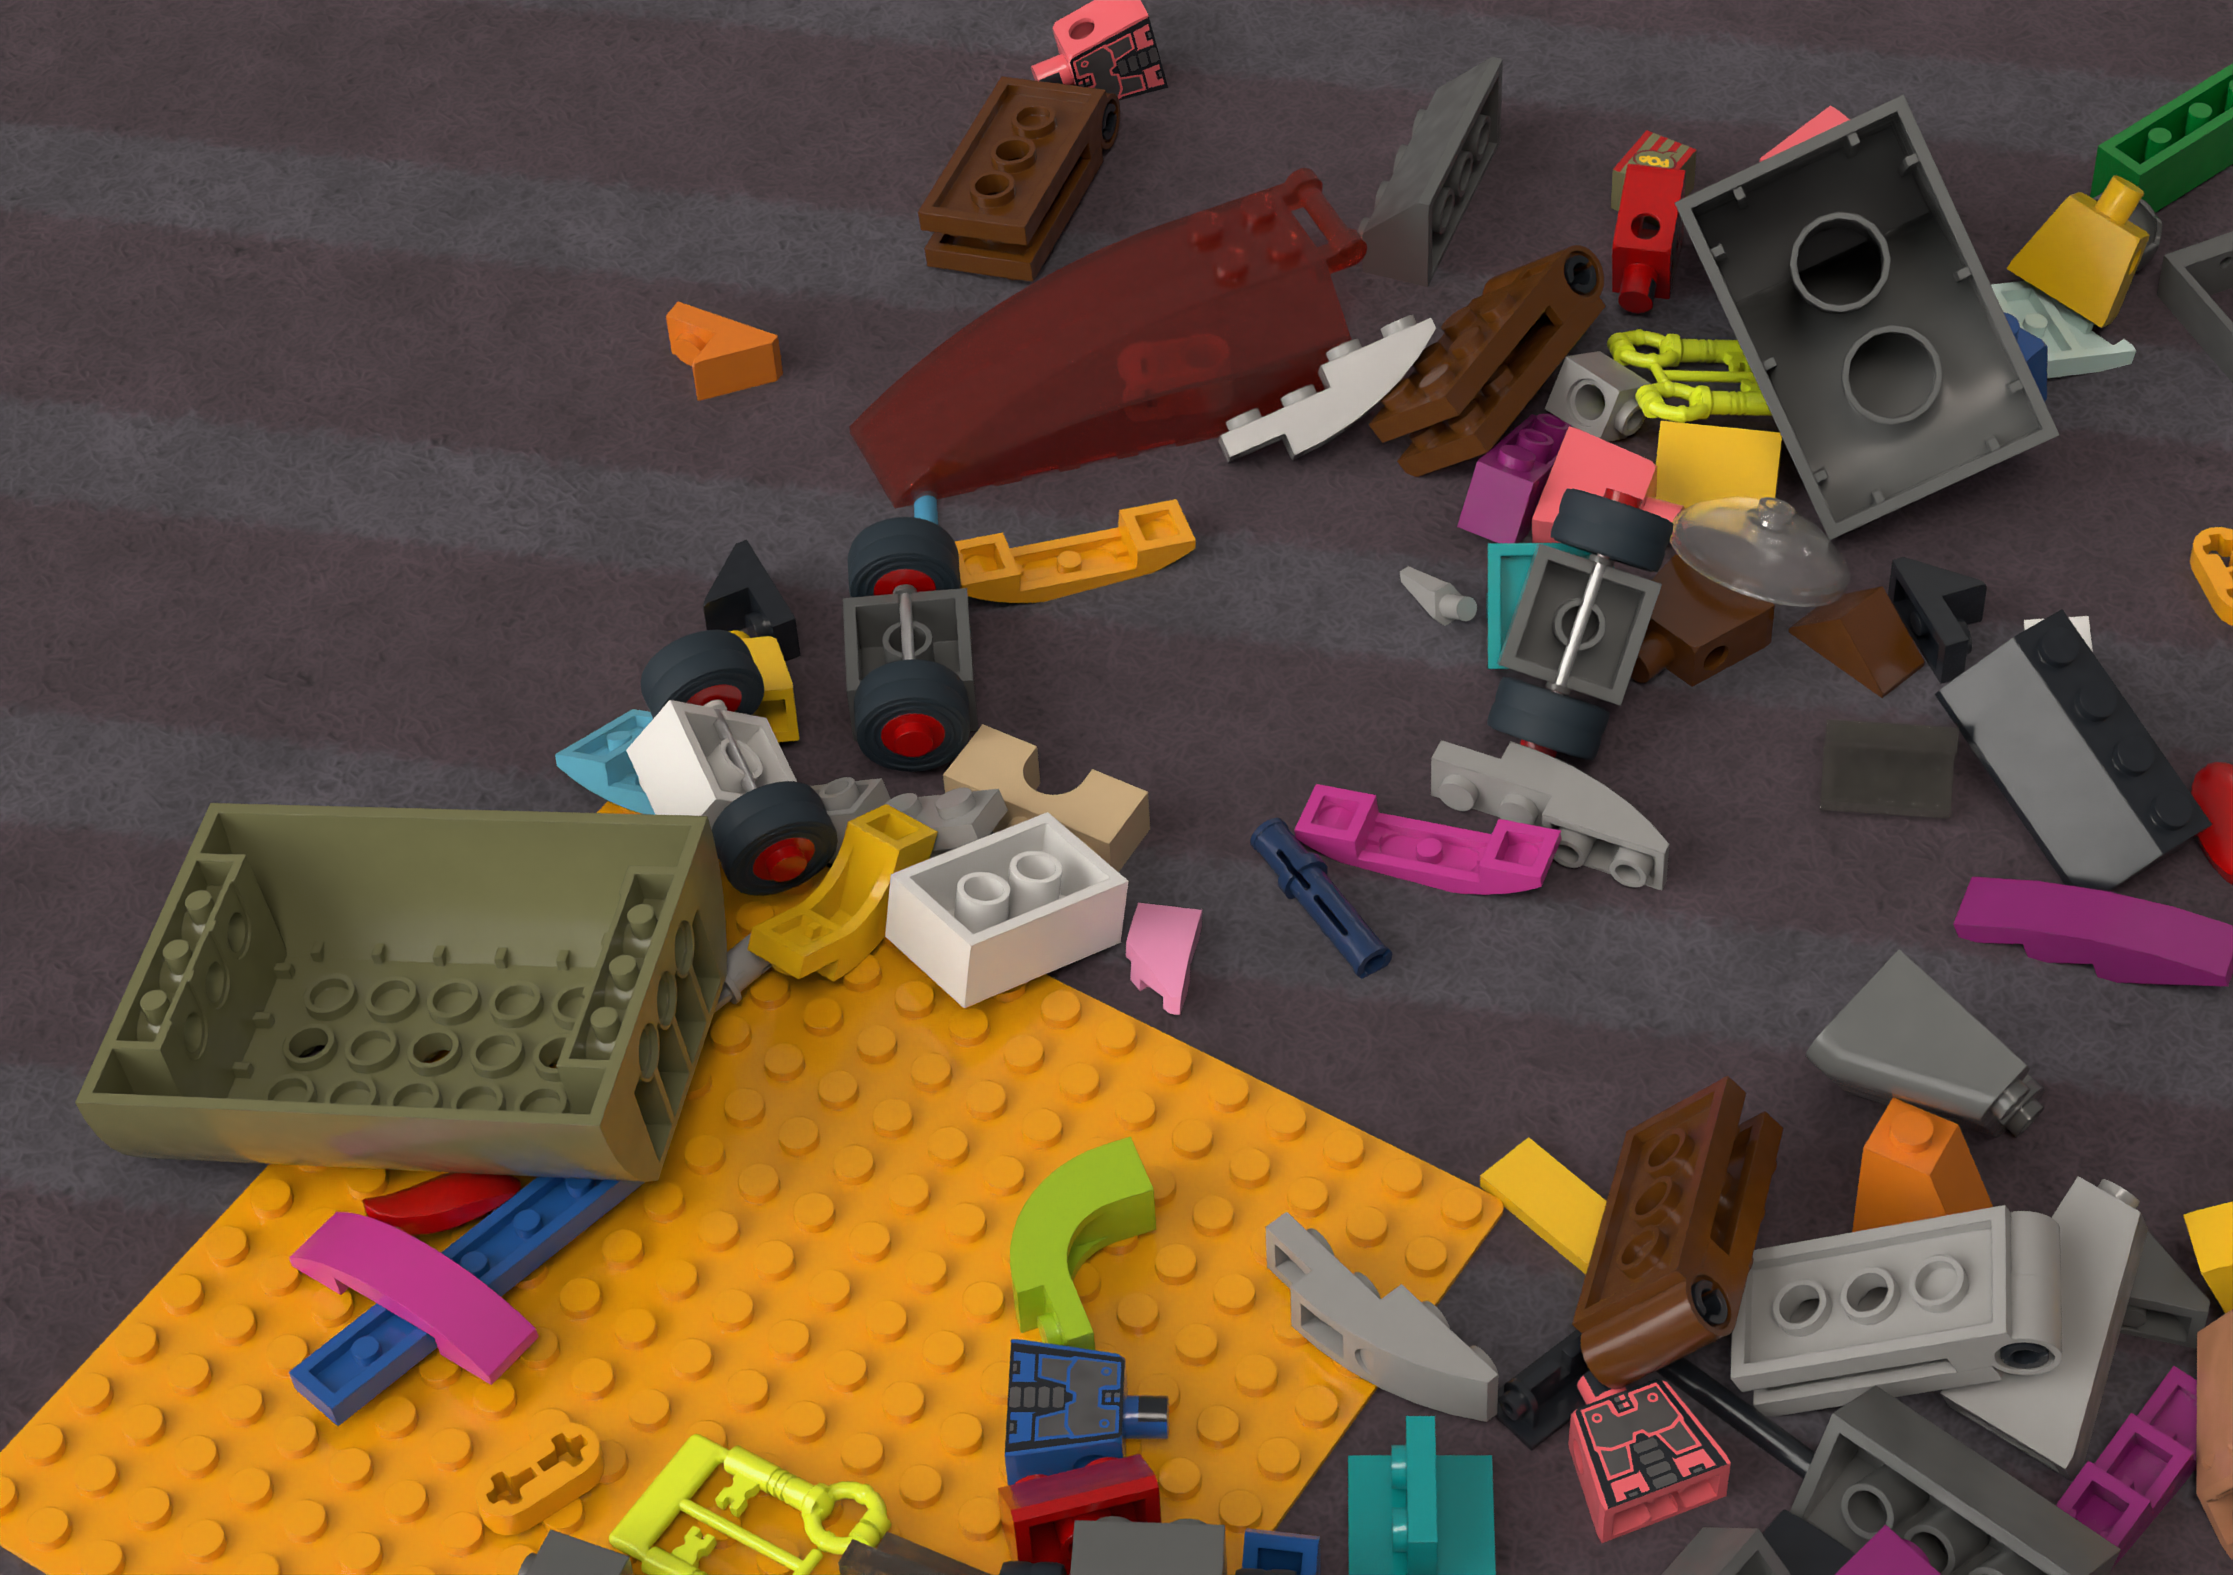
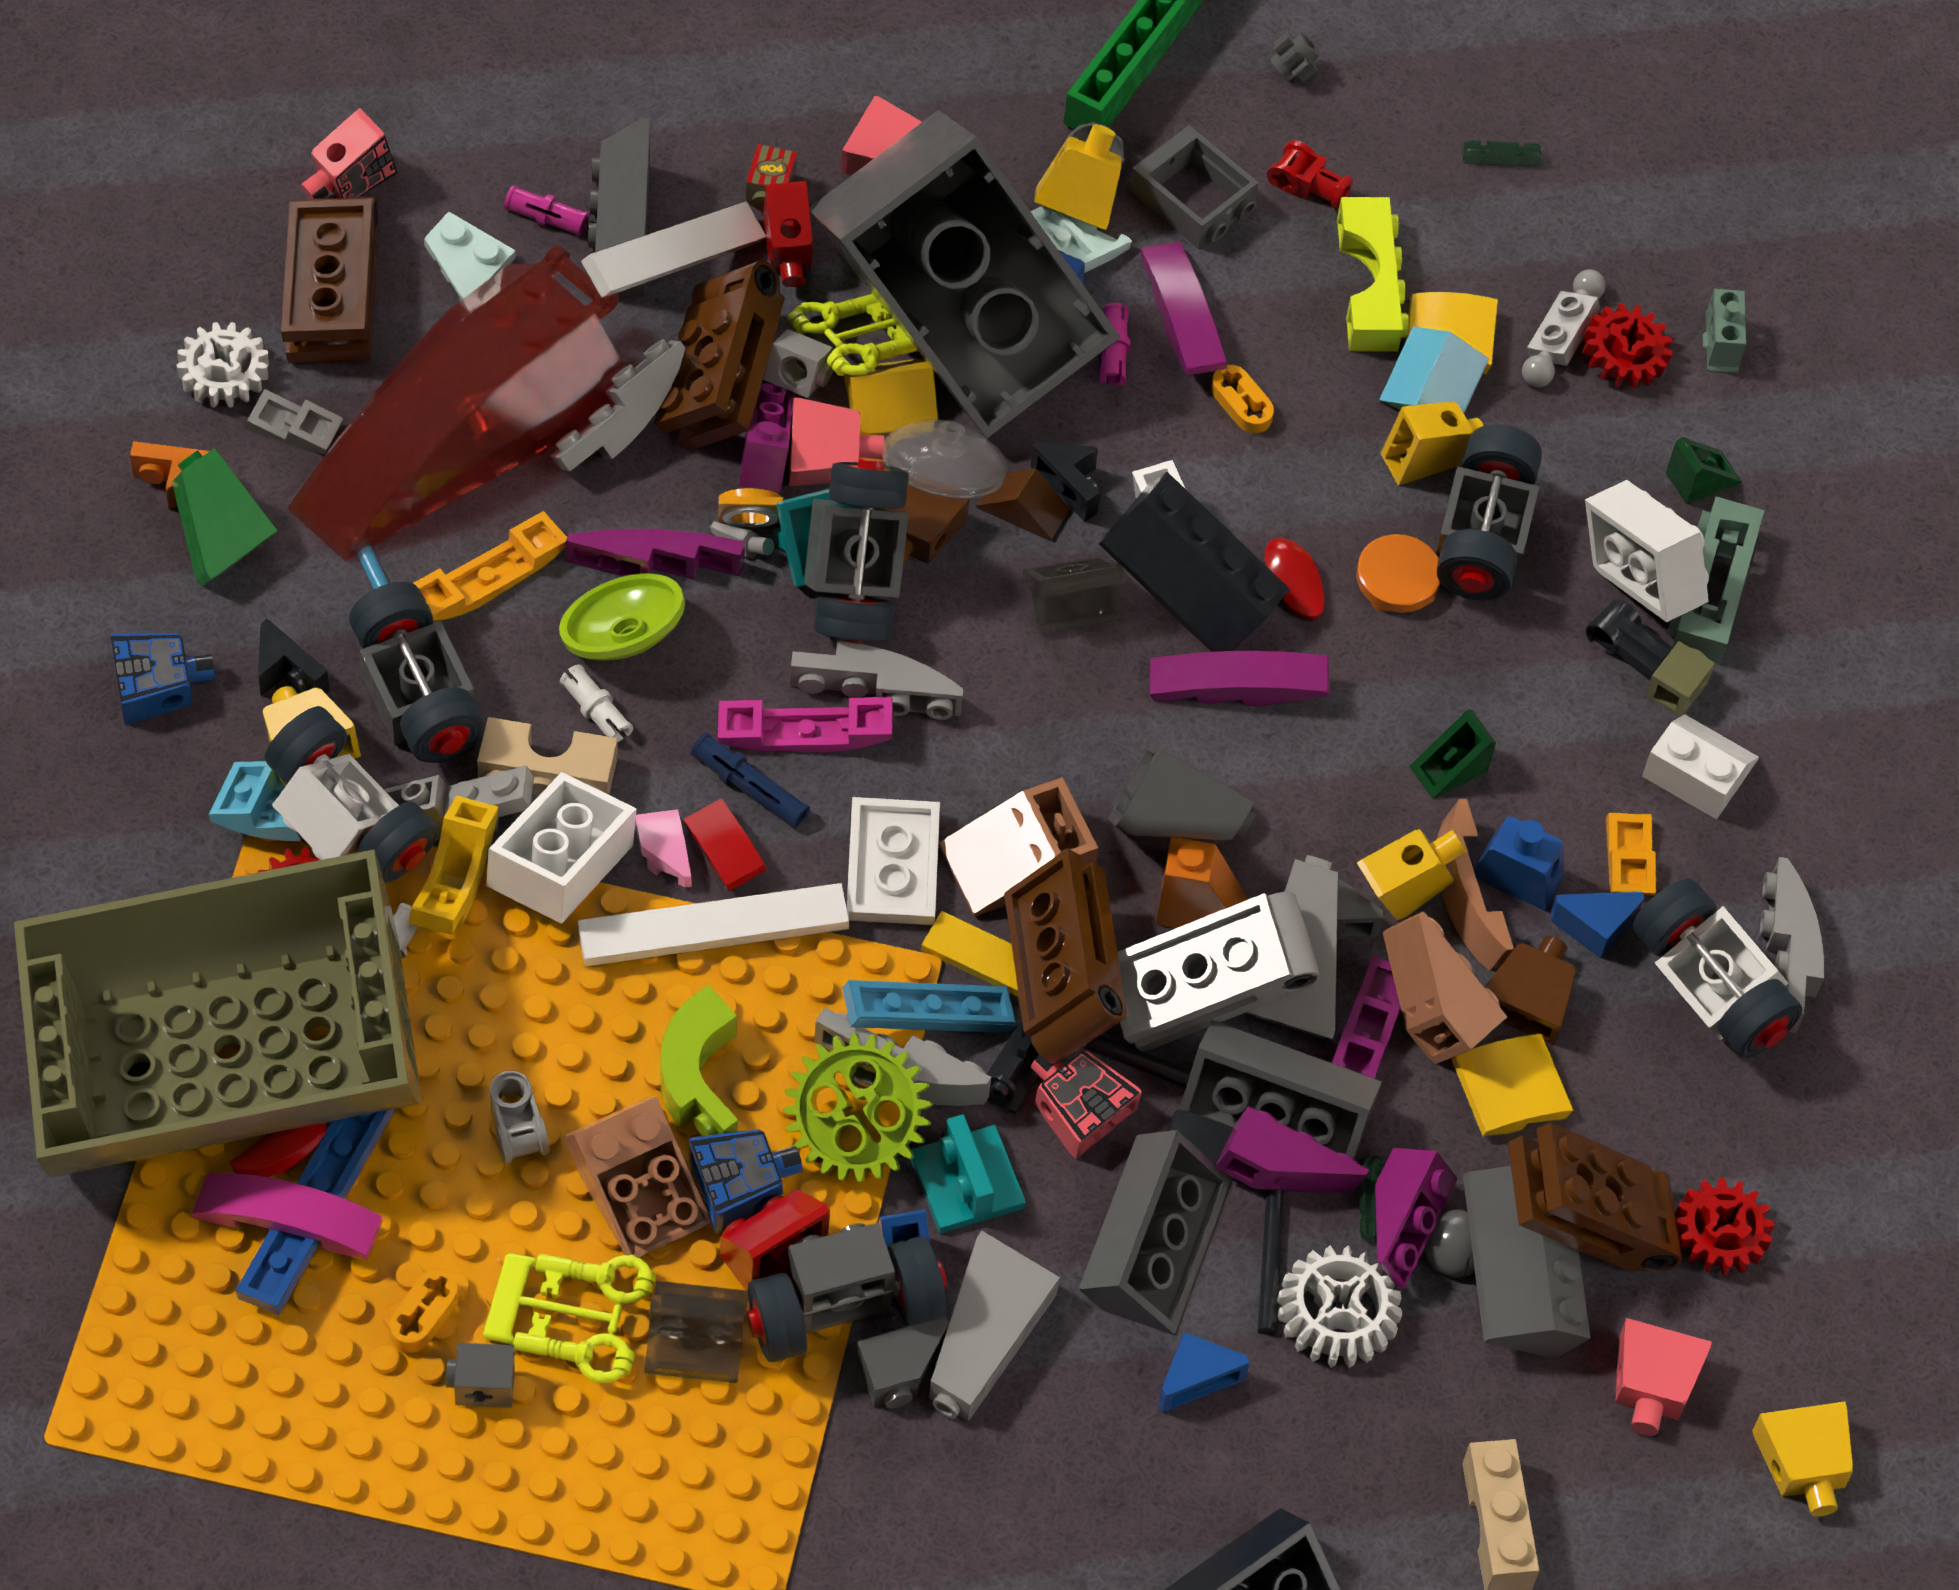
camera: 30 degrees left, 10 degrees up
(578, 578) = (155, 673): none -> torso
(744, 409) = (217, 515): none -> green slope
(785, 1258) = (517, 1124): none -> light grey piece
(840, 247) = (221, 360): none -> white gear
(894, 329) = (302, 427): none -> light grey slope
(923, 1378) = (638, 1177): none -> nougat slope
(1147, 751) = (595, 703): none -> white pin
(1185, 1068) = (713, 924): none -> white tile
(1206, 178) = (466, 253): none -> light aqua wing
(1224, 650) = (622, 617): none -> lime dish
(1248, 971) = (725, 844): none -> red slope
(1292, 576) = (642, 550): none -> magenta slope
(1314, 146) = (570, 220): none -> dark pink pin
(1336, 1341) = (892, 1084): none -> lime gear
(1448, 1256) = (928, 1006): none -> dark azure tile
(1456, 537) = (748, 506): none -> light orange piece
(1468, 214) = (673, 249): none -> white tile
(1482, 1053) = (893, 861): none -> white plate
(1665, 1057) = (1015, 842): none -> slope
(2064, 469) = (1114, 357): none -> dark pink pin
(2181, 445) = (1184, 309): none -> magenta slope

